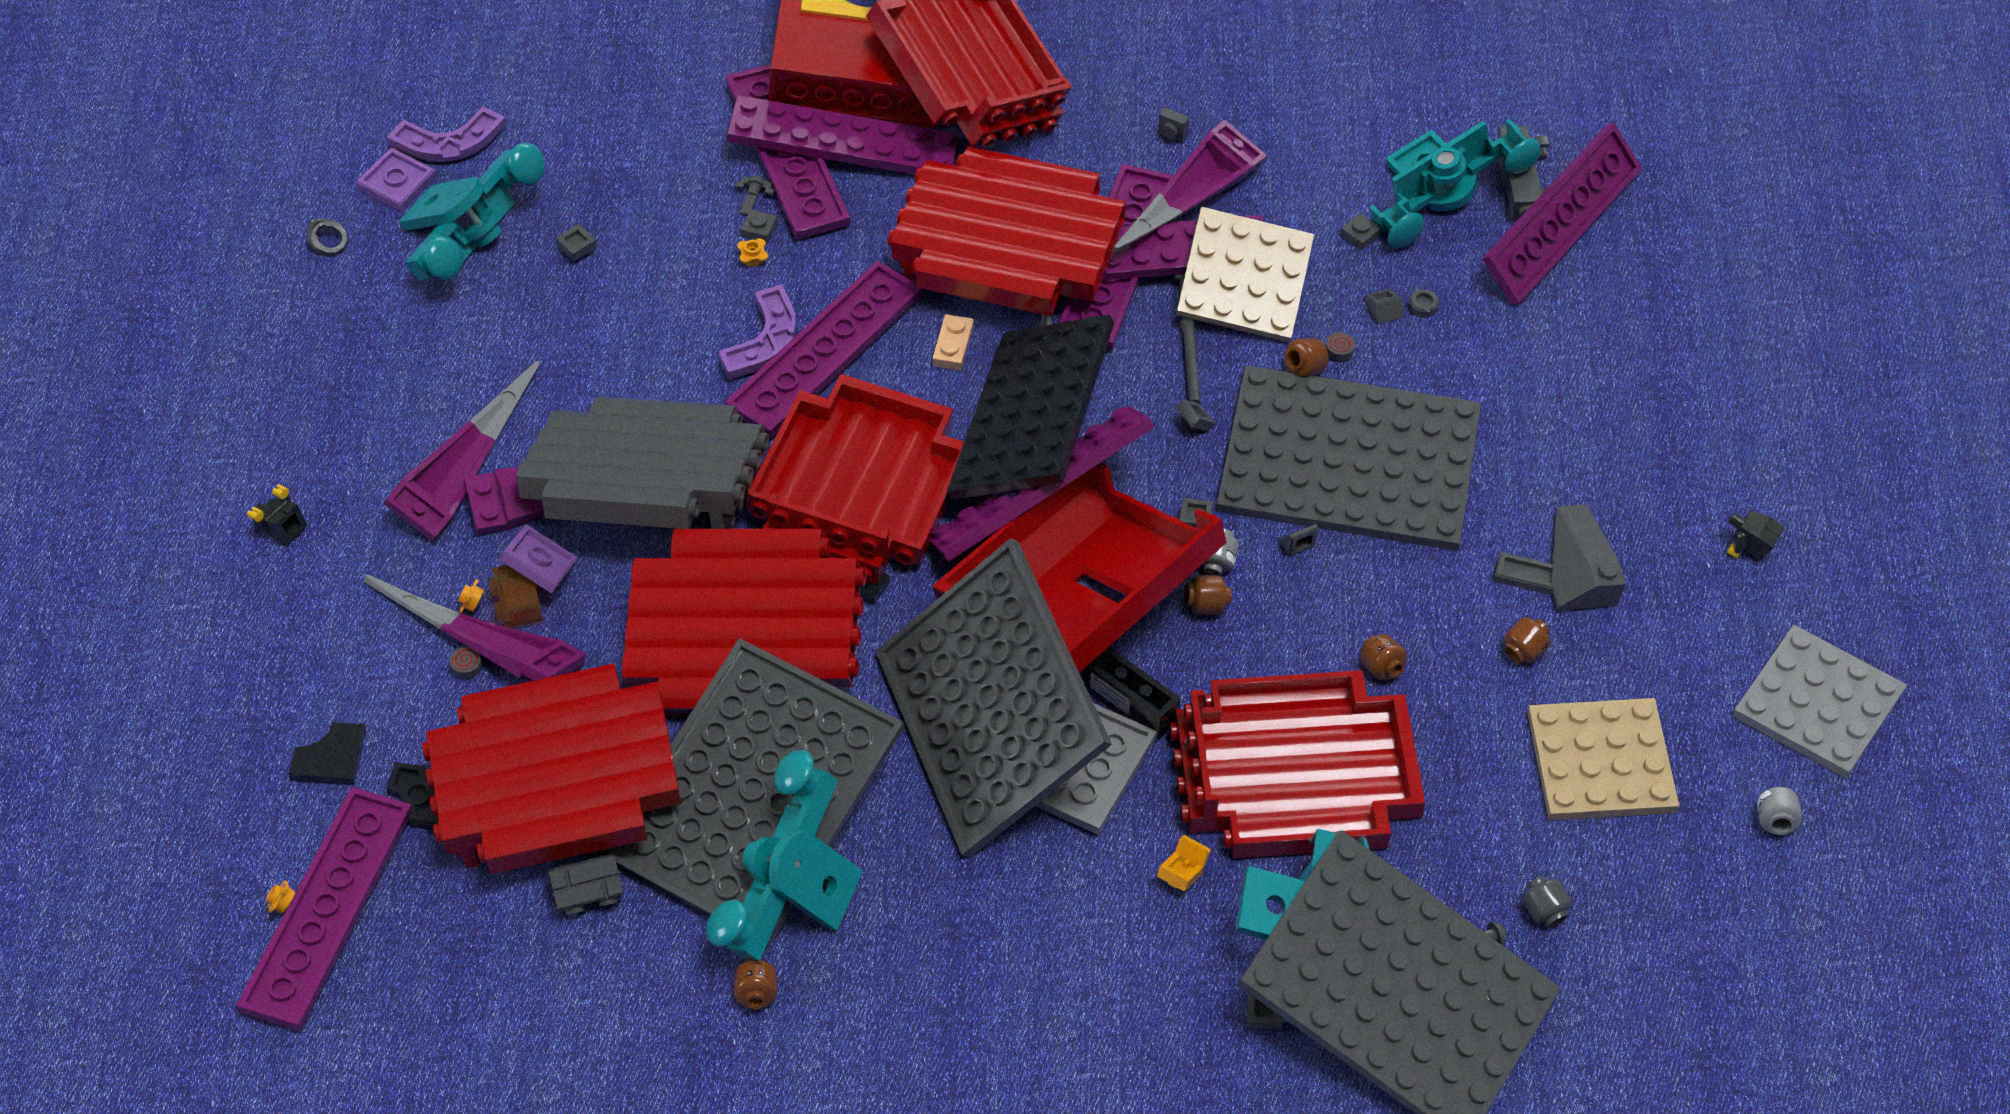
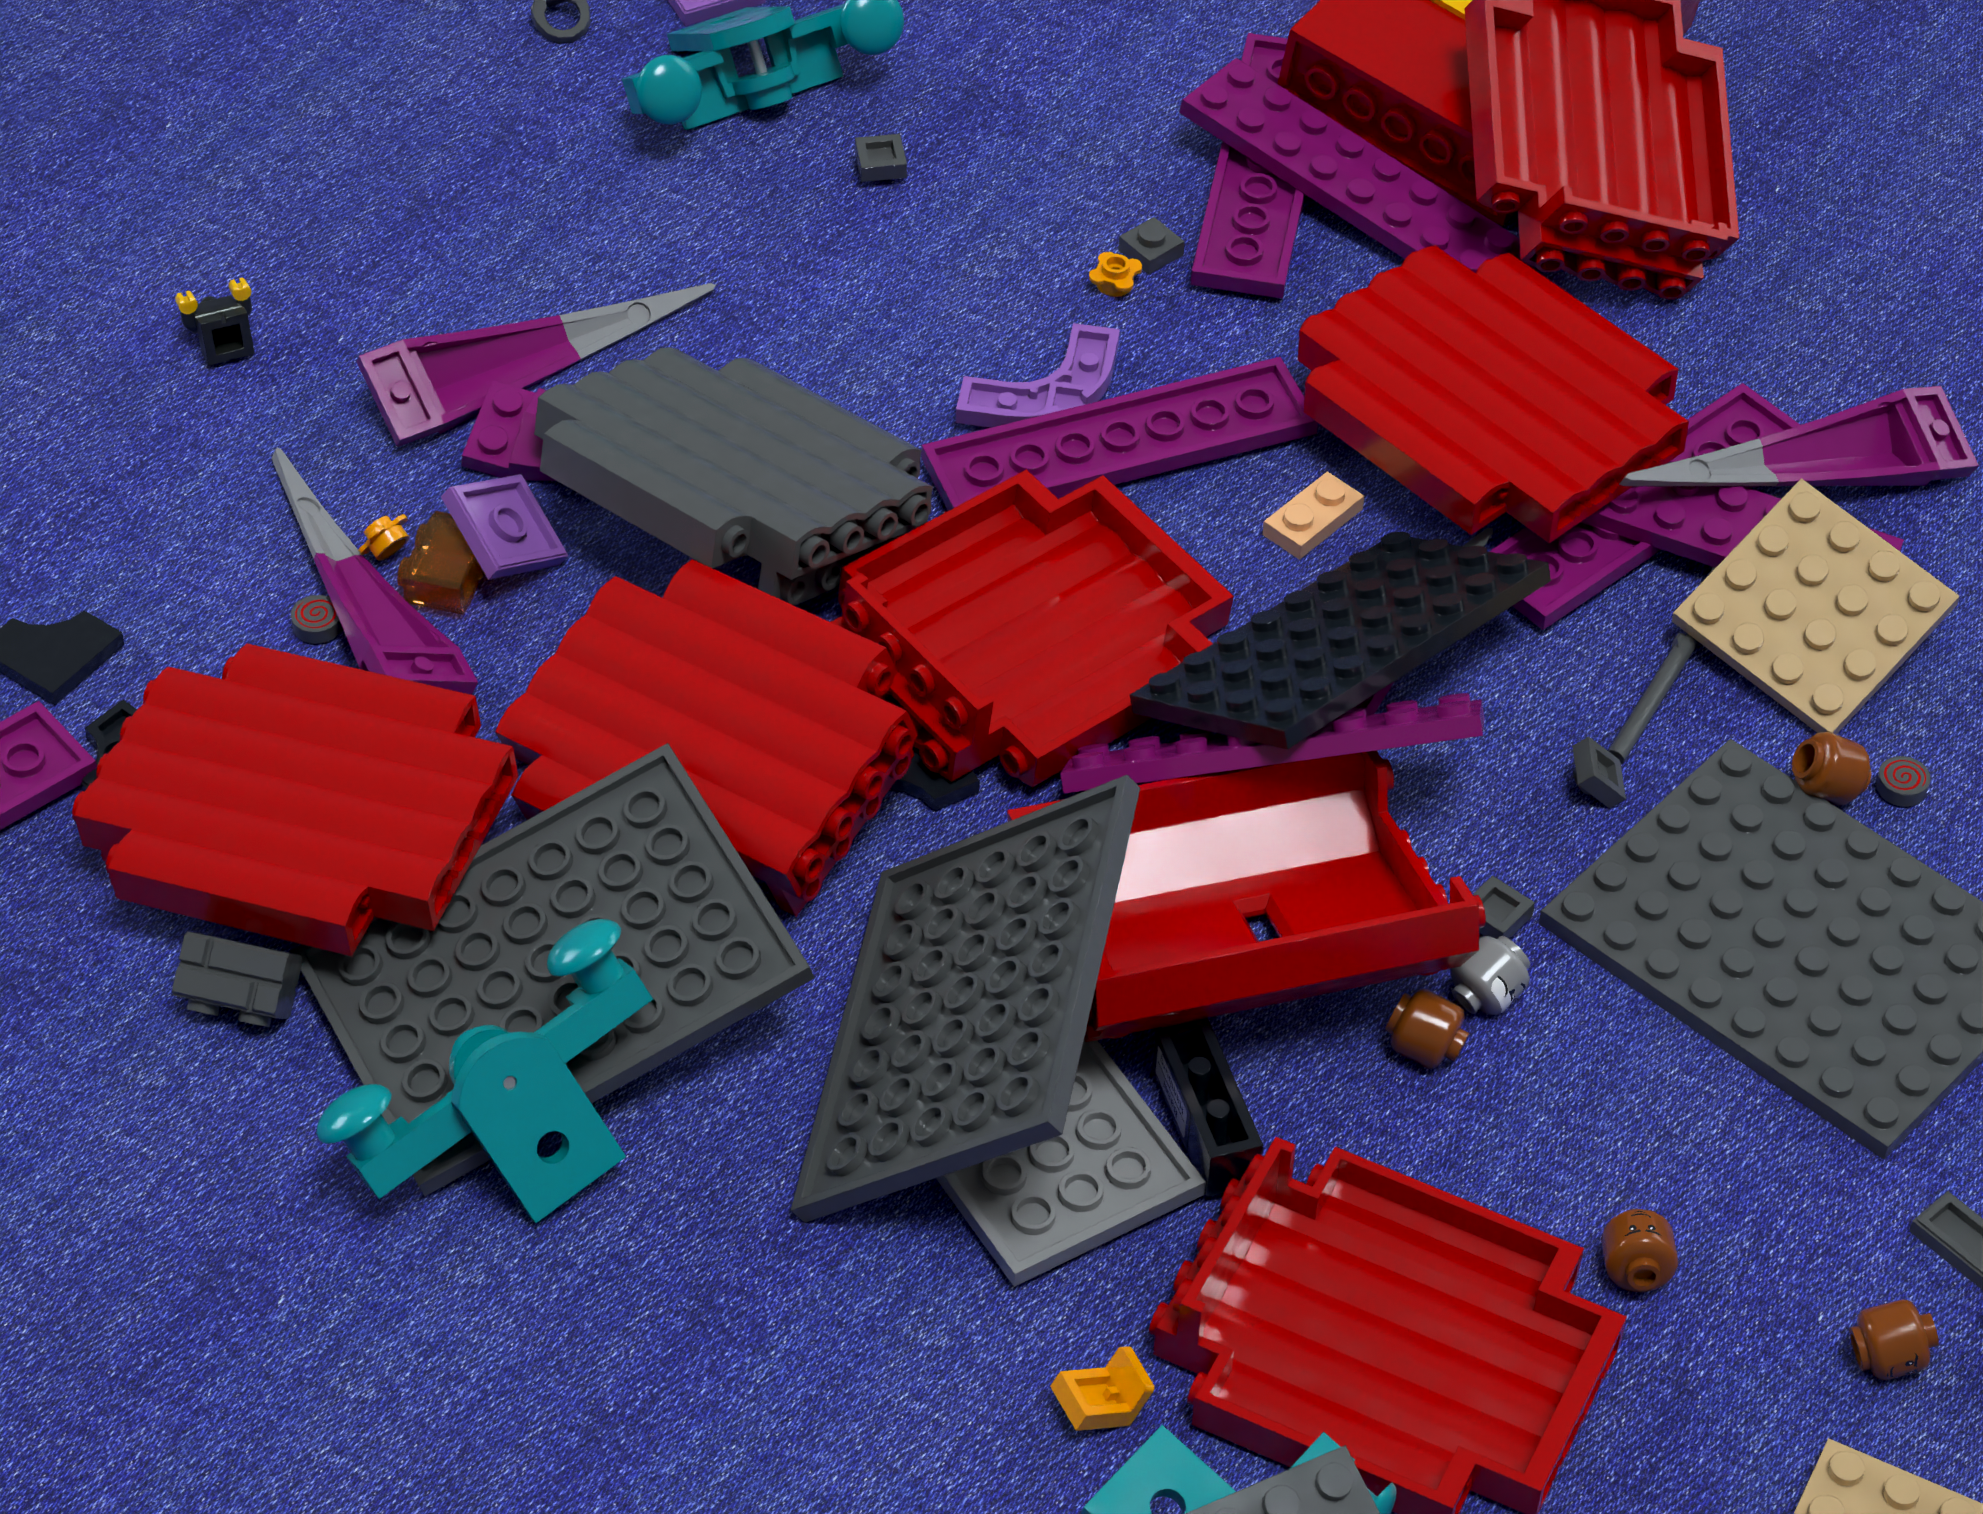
camera: 30 degrees right, 5 degrees down
(755, 184) = (1187, 189): dark grey piece -> none
(755, 982) = (360, 1233): dark orange head -> none
(1173, 125) = (1861, 365): dark grey plate -> none
(1299, 540) = (1633, 1021): dark grey slope -> none

